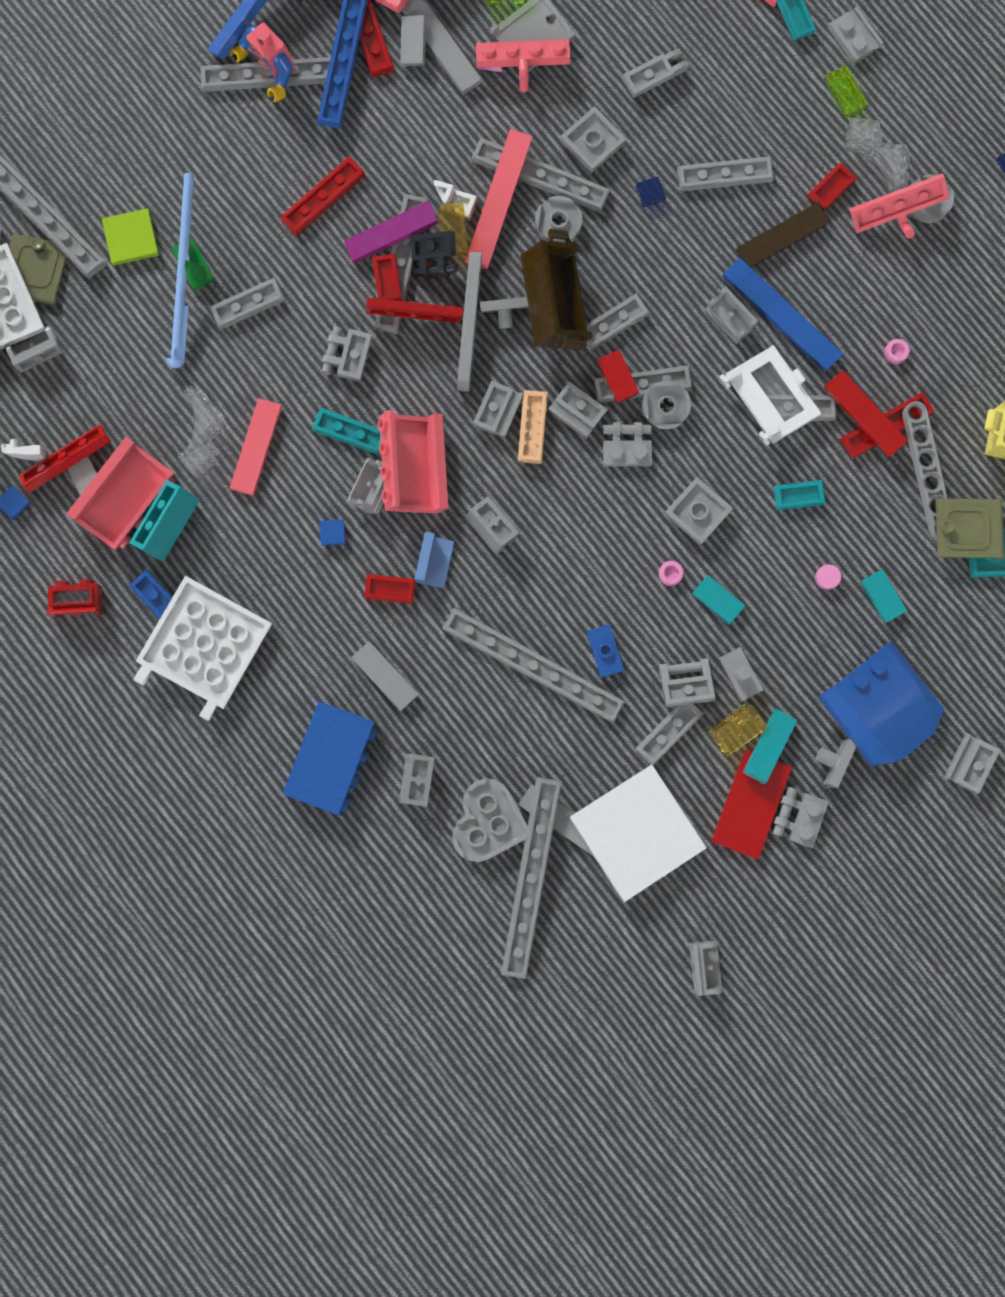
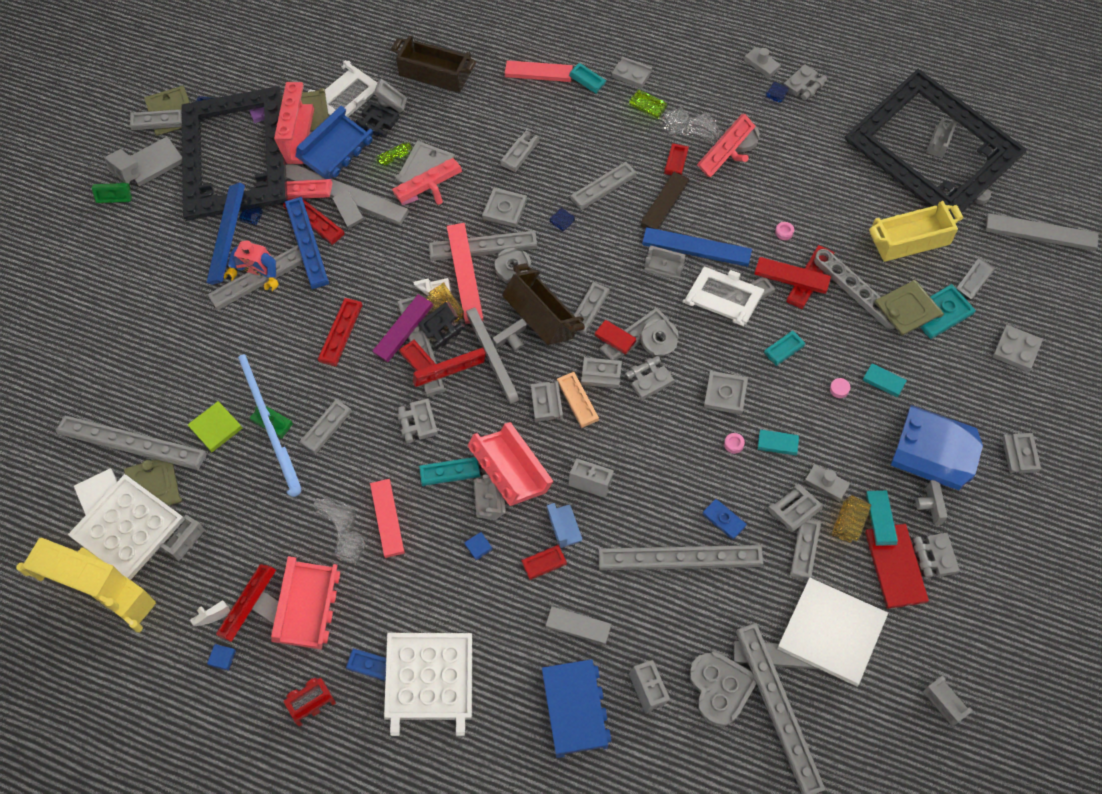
camera: 25 degrees left, 20 degrees down
(164, 520) = (349, 603): teal brick -> none

